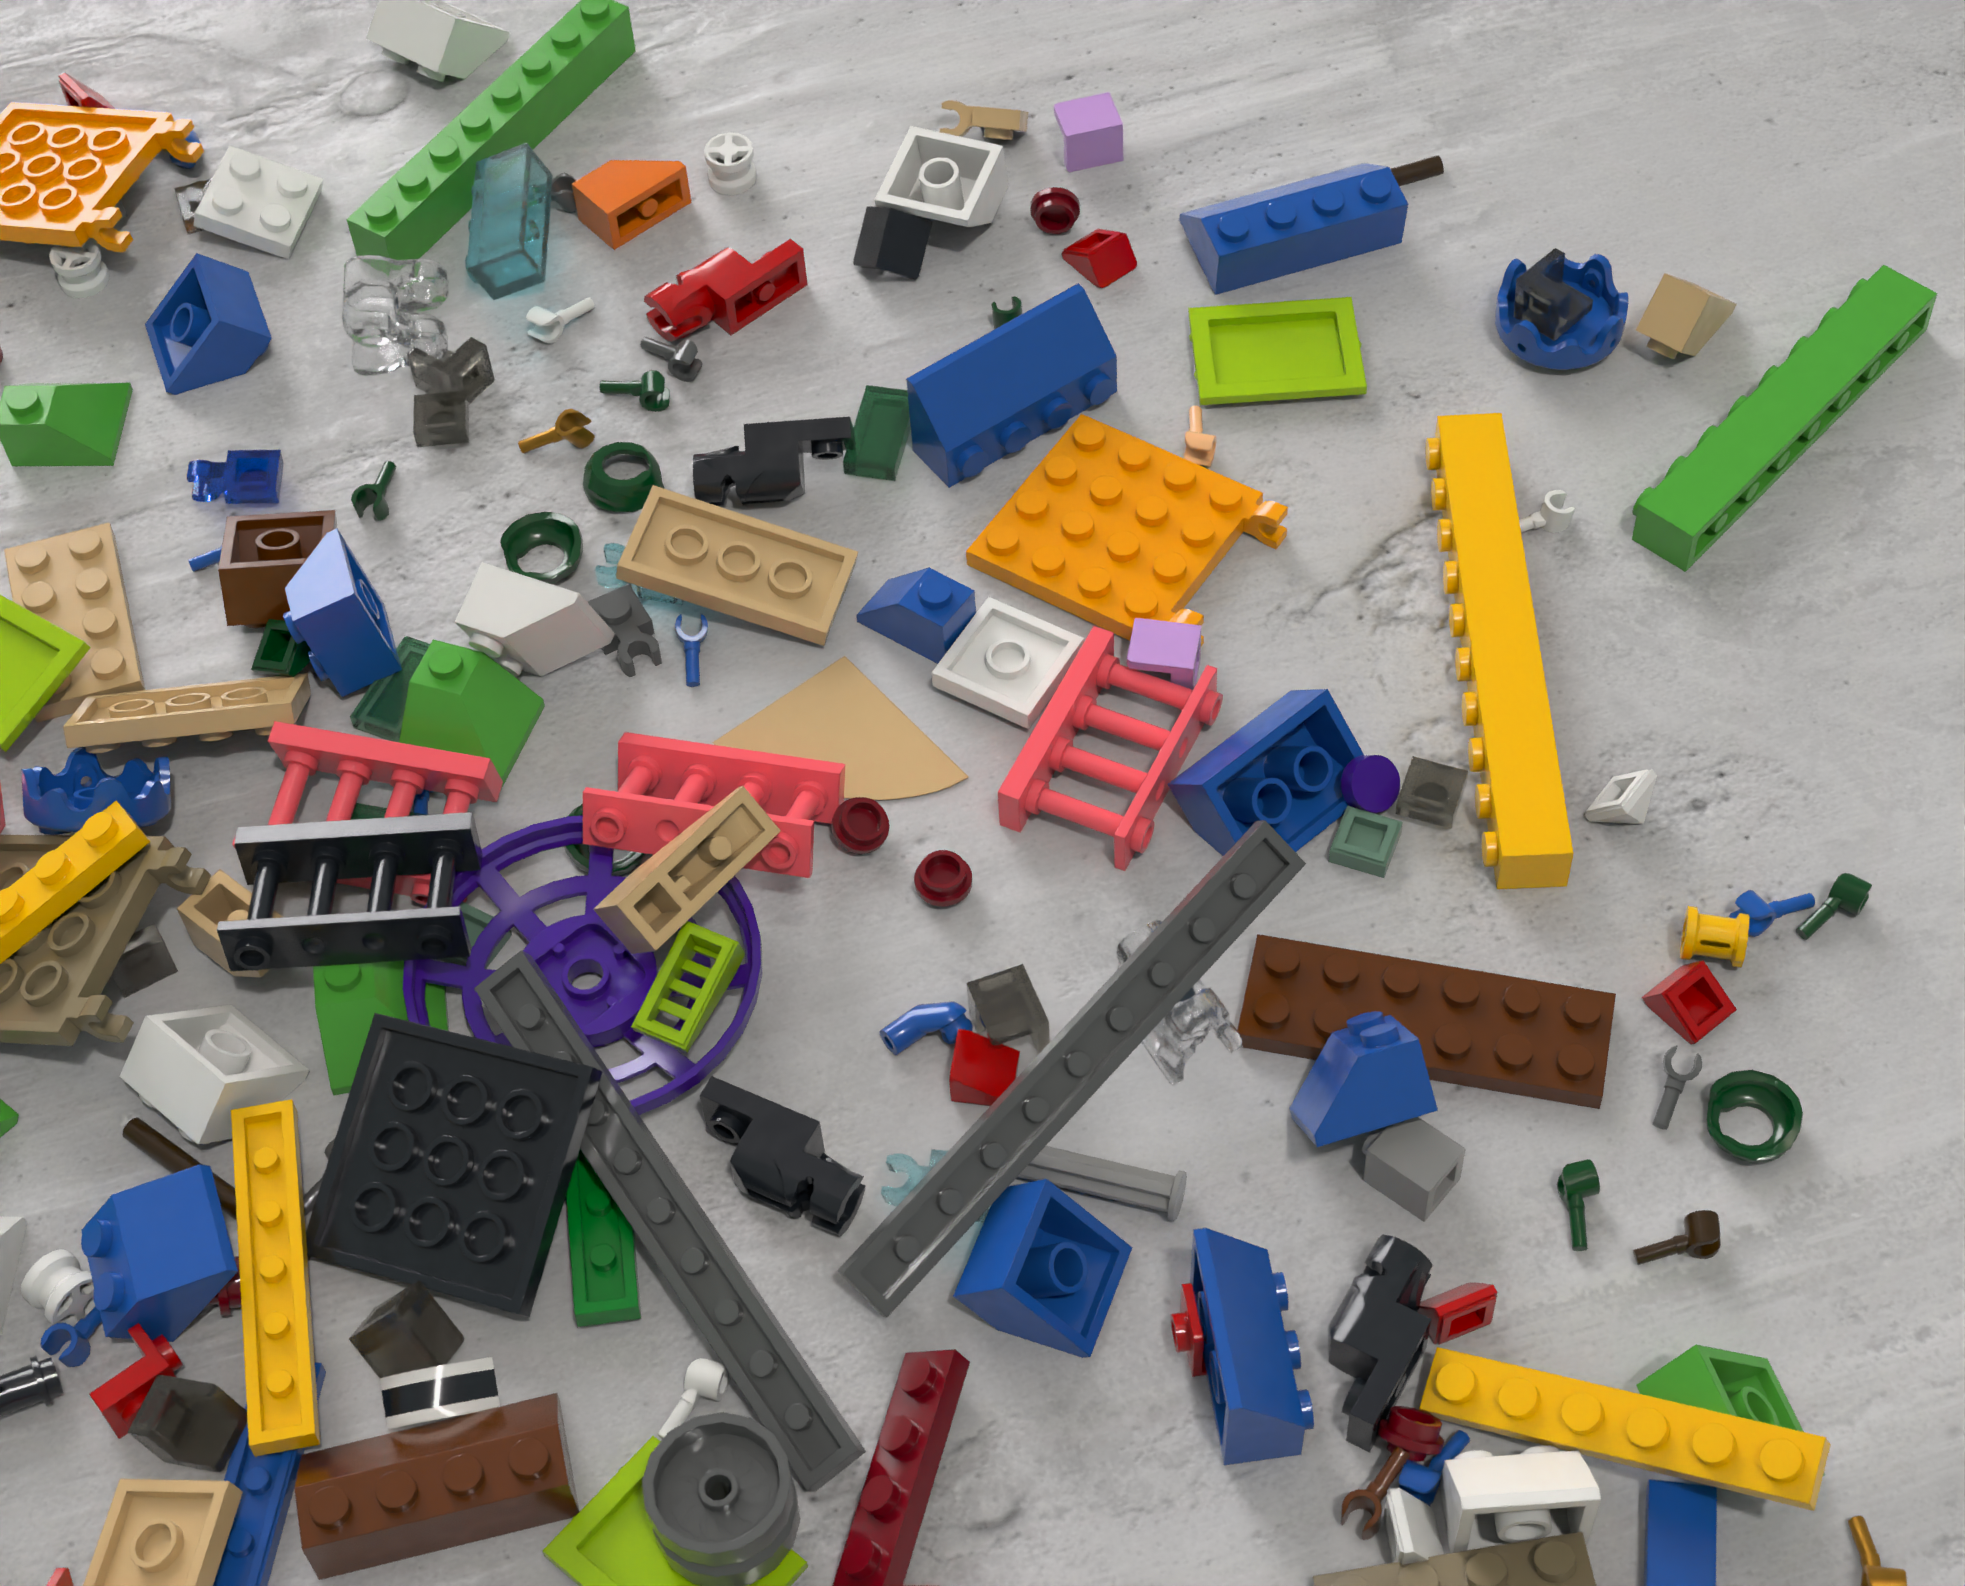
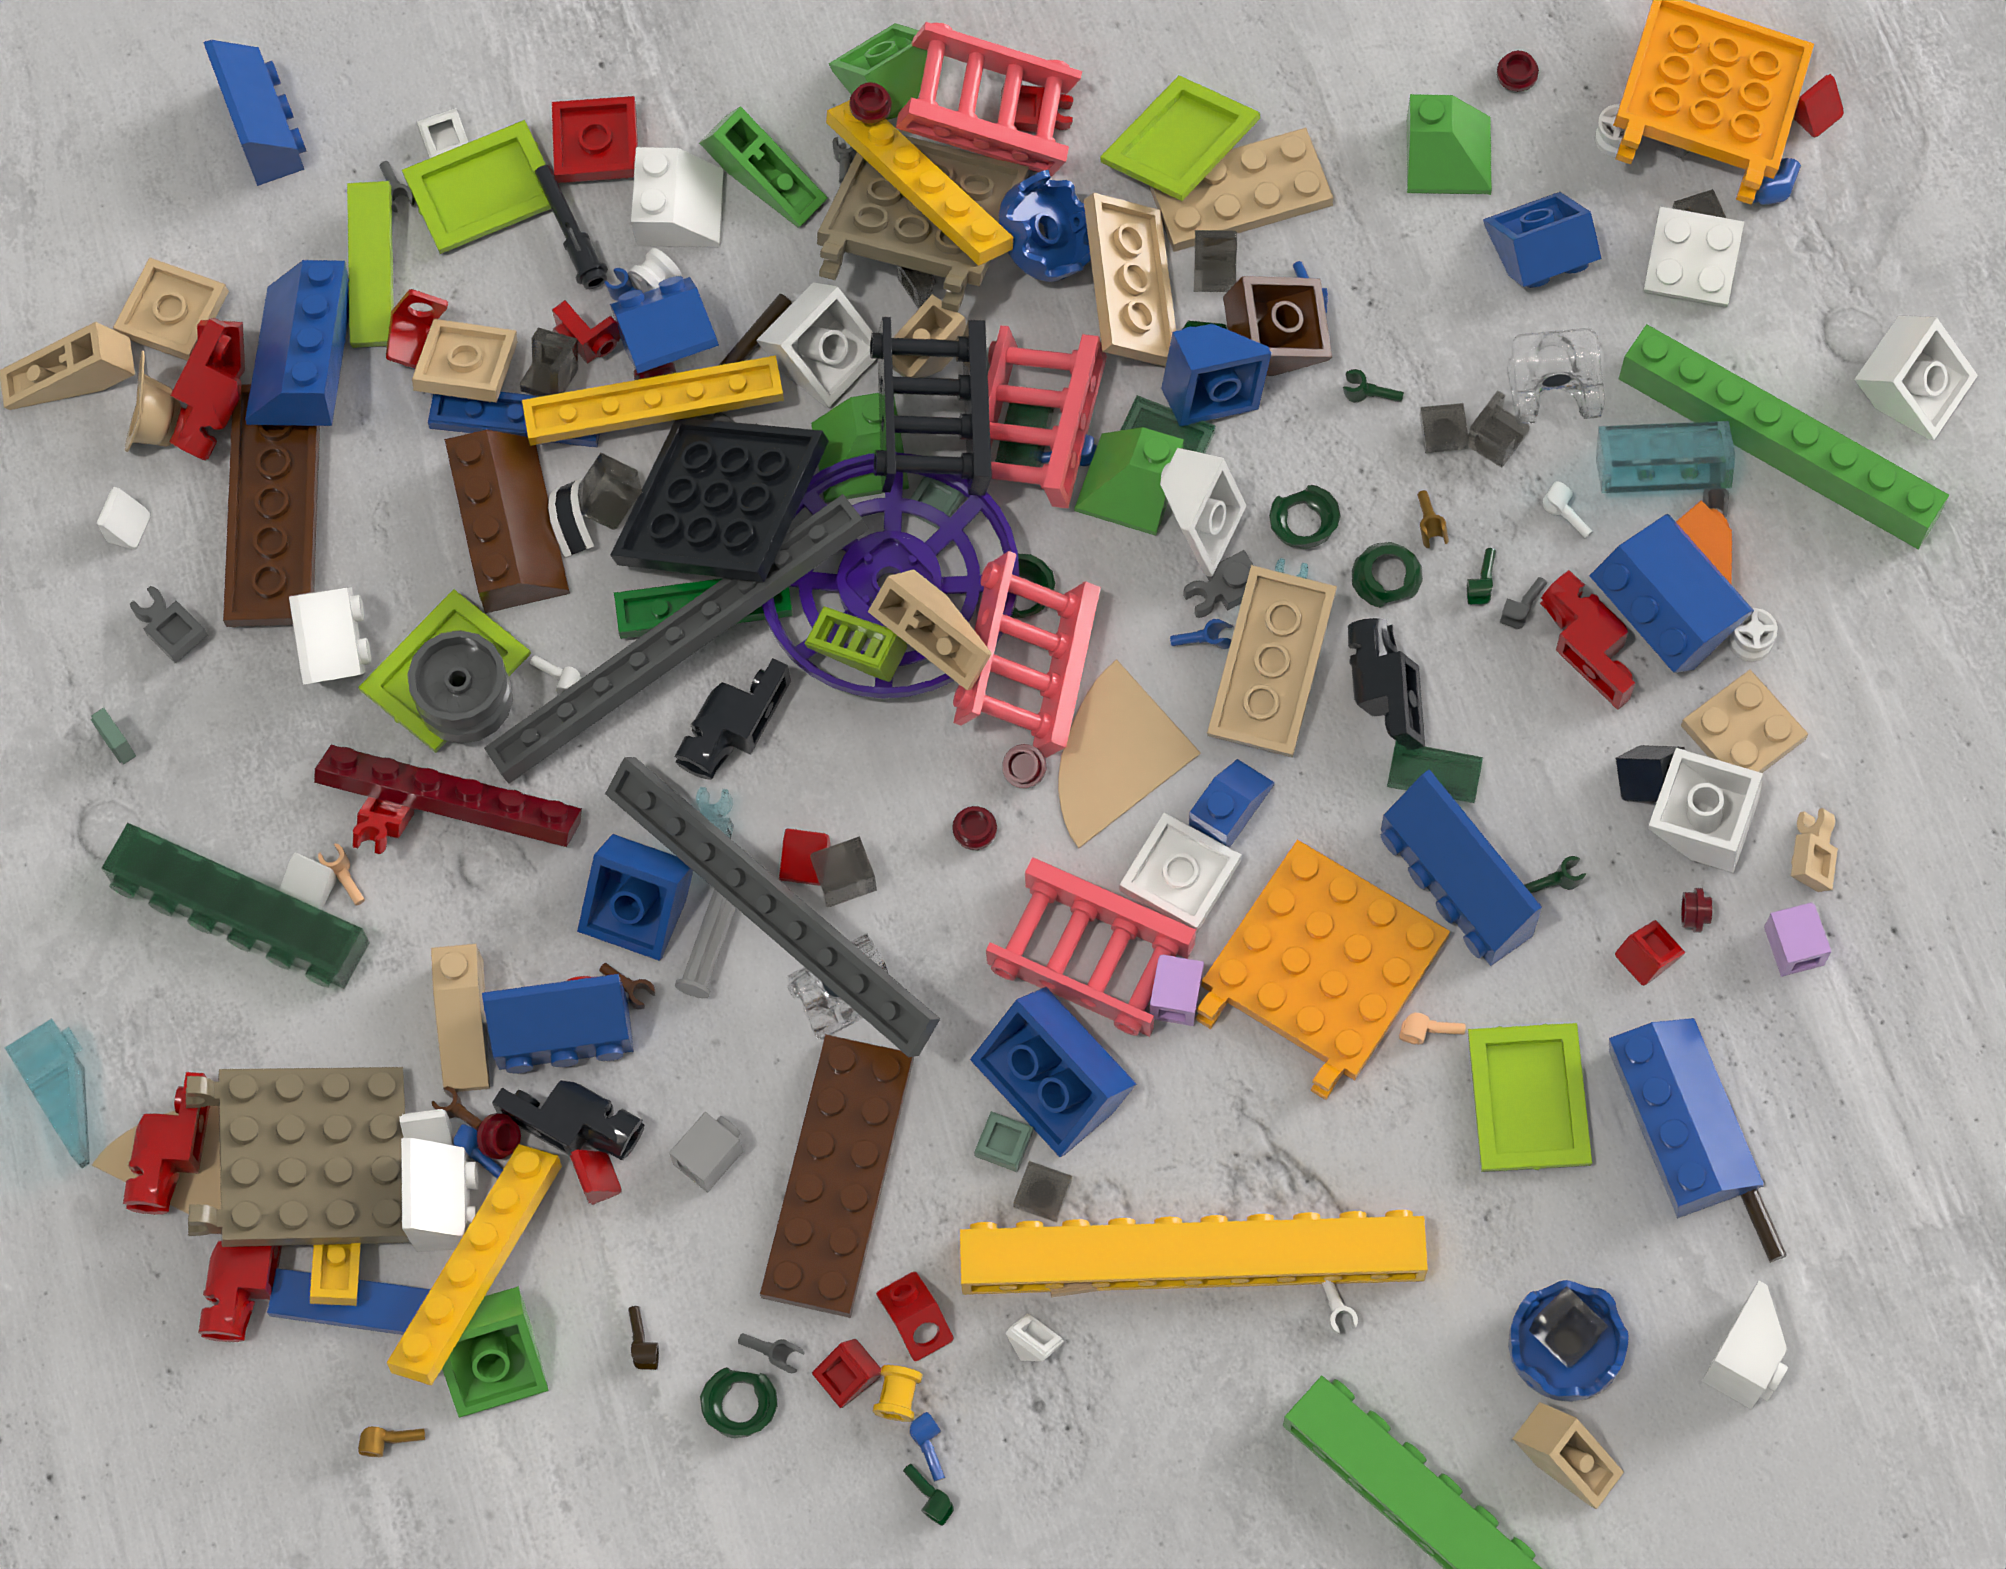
camera: 90 degrees right, 15 degrees up
(174, 642) = (1214, 260): none -> clear smoke panel
(242, 479) = (1380, 290): clear blue plate -> none
(683, 209) = (1671, 594): none -> blue slope
(834, 177) = (1745, 725): none -> tan plate
(924, 1019) = (849, 815): blue arm -> none
(1175, 1275) = (630, 985): none -> reddish brown hand
(1230, 1495) = (461, 1016): none -> tan slope
(1364, 1081) = (756, 1113): blue slope -> none
(1370, 783) = (1050, 1143): dark purple tile -> none
(1553, 157) = (1752, 1352): none -> white slope
(1574, 1184) = (691, 1268): dark green hand -> none
(1598, 925) = (910, 1306): none -> red bracket

